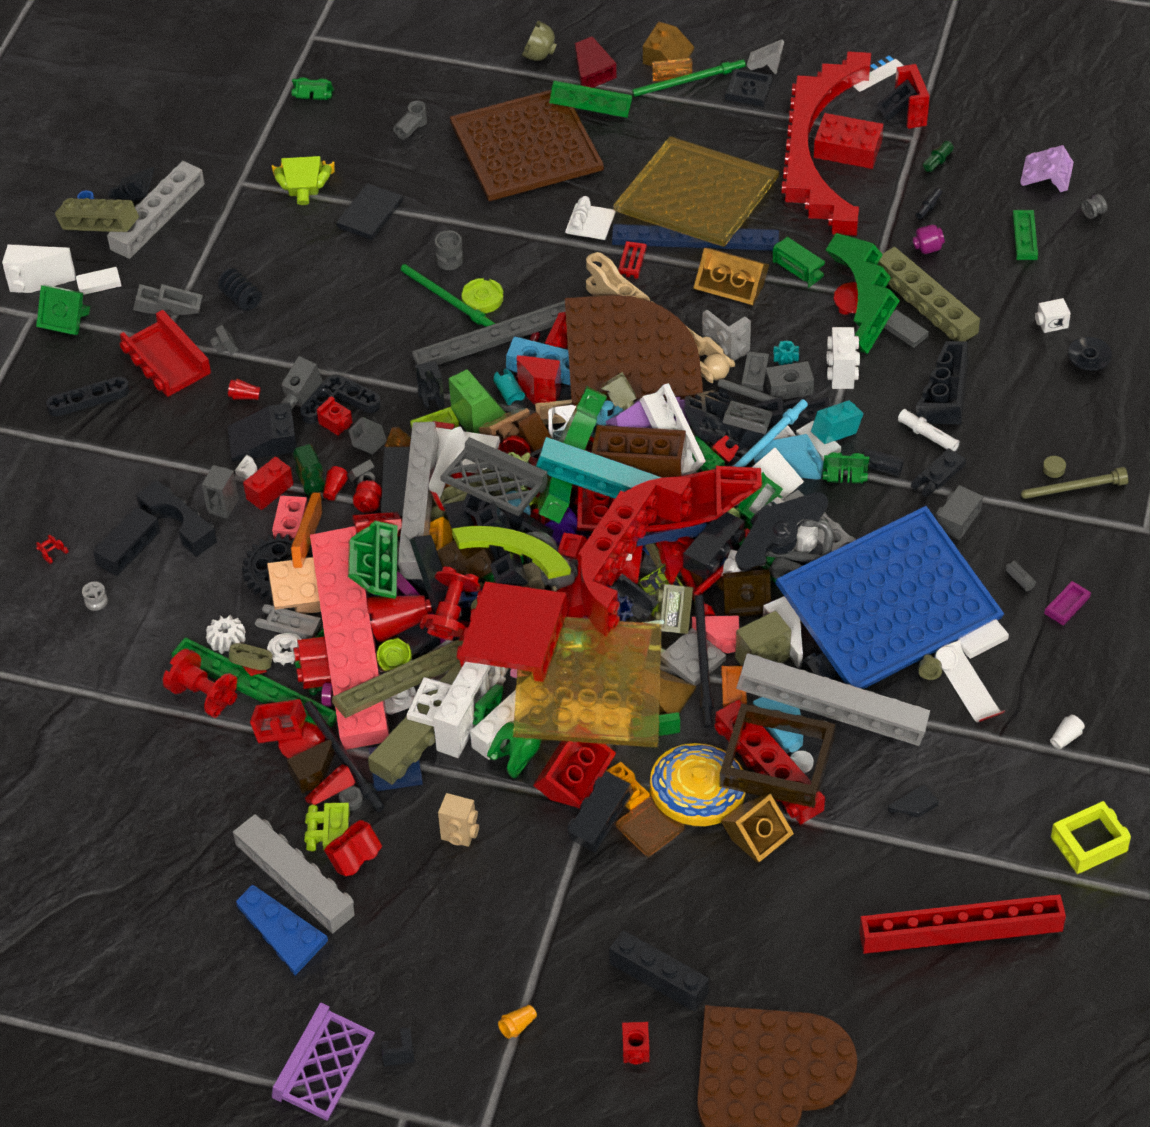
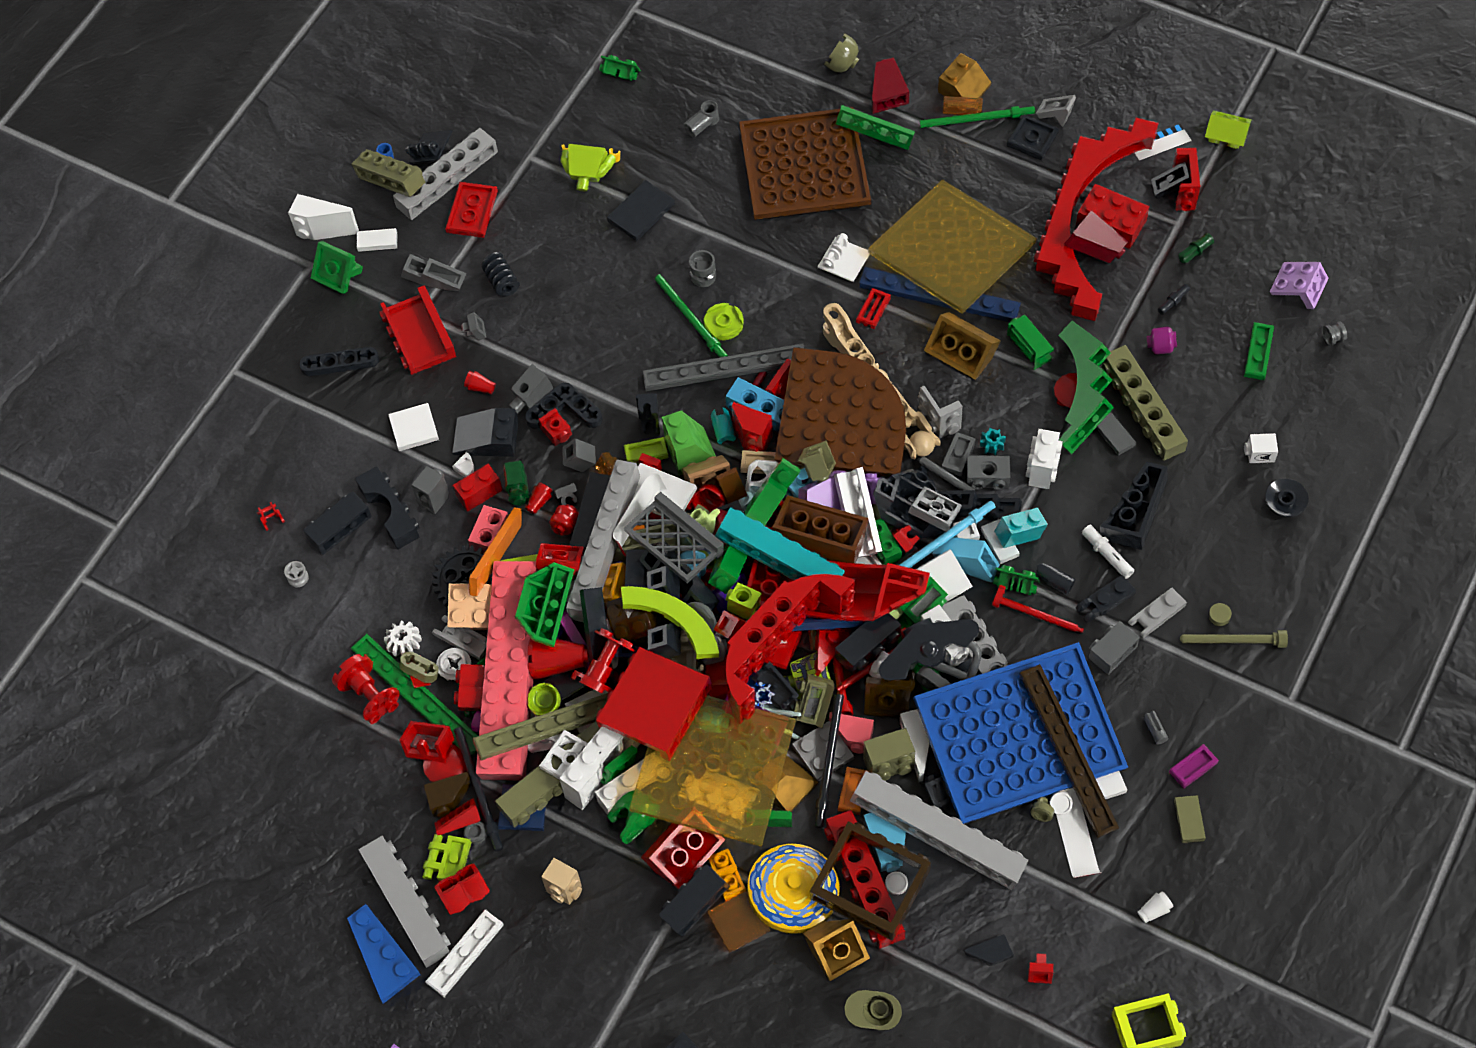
camera: 15 degrees right, 10 degrees up
(183, 442) = (413, 427): none -> white tile
(191, 238) = (471, 209): none -> red tile
(370, 911) = (464, 953): none -> white tile
(579, 522) = (743, 609): none -> lime brick
(812, 874) = (873, 1010): none -> olive piece
(840, 161) = (1097, 239): none -> slope
(869, 496) = (999, 599): none -> red piece
(939, 49) = (1227, 129): none -> lime slope
(942, 606) = (1068, 751): none -> dark brown tile
(970, 809) = (1040, 971): none -> red tile
(994, 474) = (1158, 611): none -> light grey hinge
(1077, 649) = (1189, 819): none -> olive tile

